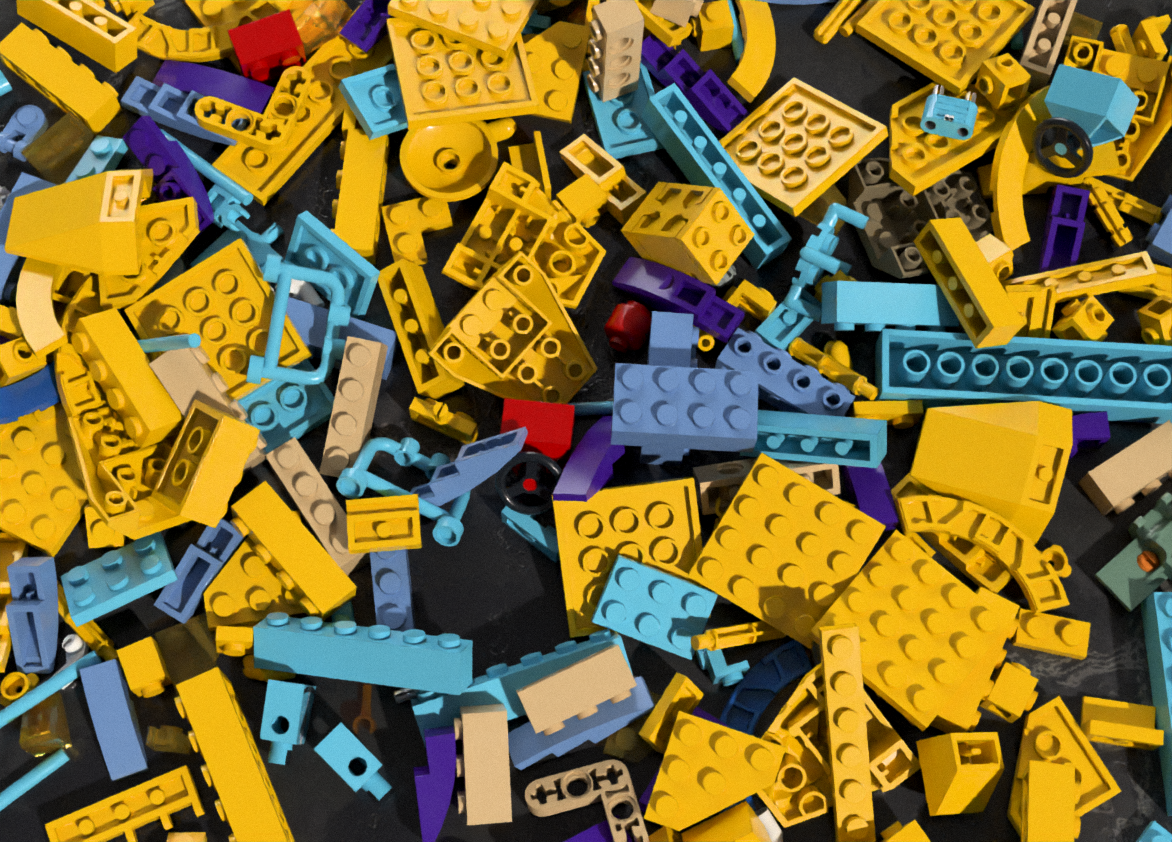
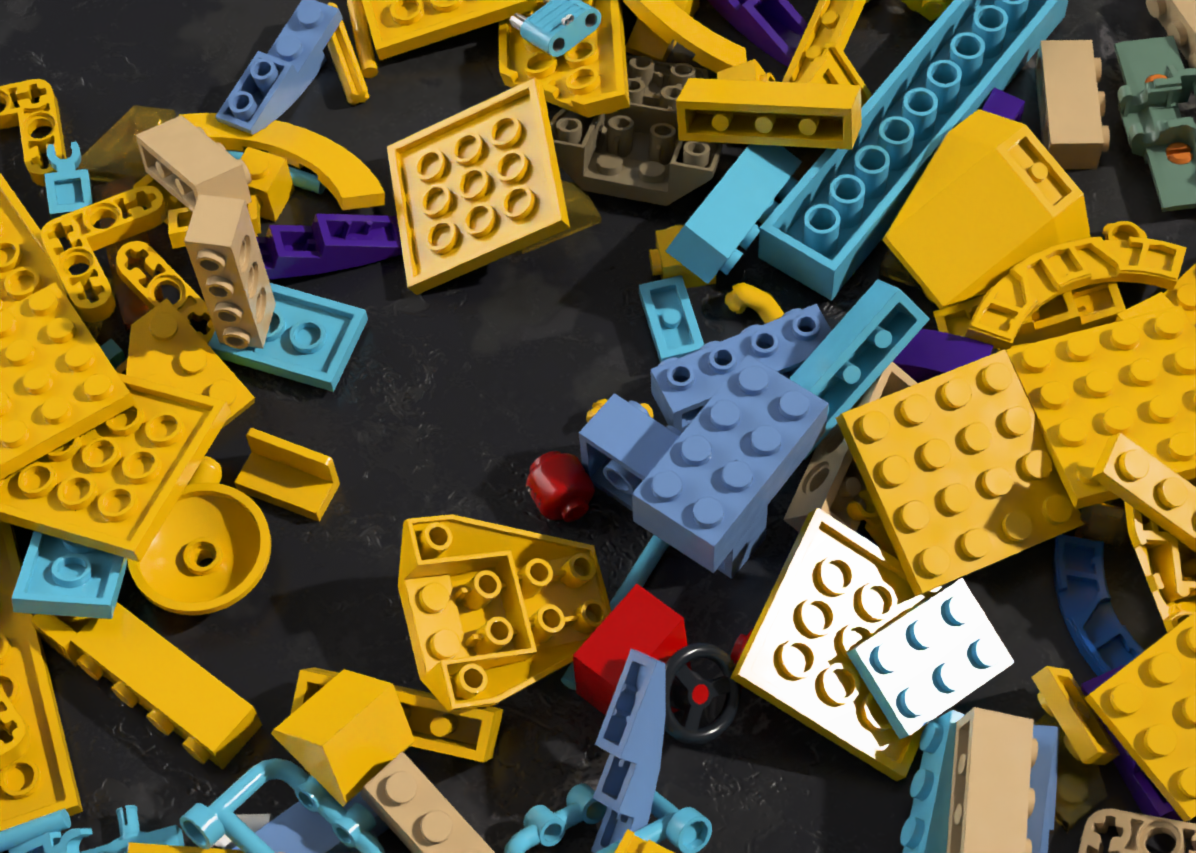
camera: 50 degrees left, 10 degrees down
(321, 249) = (211, 760): medium azure plate -> none
(377, 307) = (347, 733): none -> yellow slope
(407, 223) = (242, 657): yellow plate -> none
(437, 417) = (536, 757): yellow plate -> none
(524, 219) = (348, 530): yellow wedge -> none
(526, 526) = (760, 735): medium azure plate -> none
(583, 201) = (369, 445): yellow brick -> none
(589, 464) = (713, 608): dark purple slope -> none
(623, 193) = (358, 403): yellow slope -> none
(679, 293) = (559, 407): dark purple slope -> none
(689, 231) = (505, 343): yellow piece -> none
(708, 164) = (451, 283): medium azure brick -> none
(718, 669) = (1034, 636): medium azure bracket -> none
(735, 635) = (1021, 591): yellow piece -> none
(752, 299) = (623, 341): yellow bracket -> none
(817, 257) = (633, 237): medium azure plate -> none
(832, 368) = (763, 309): yellow piece -> none
(897, 413) = (853, 285): yellow plate -> none
(1083, 321) = (876, 50): yellow brick -> none

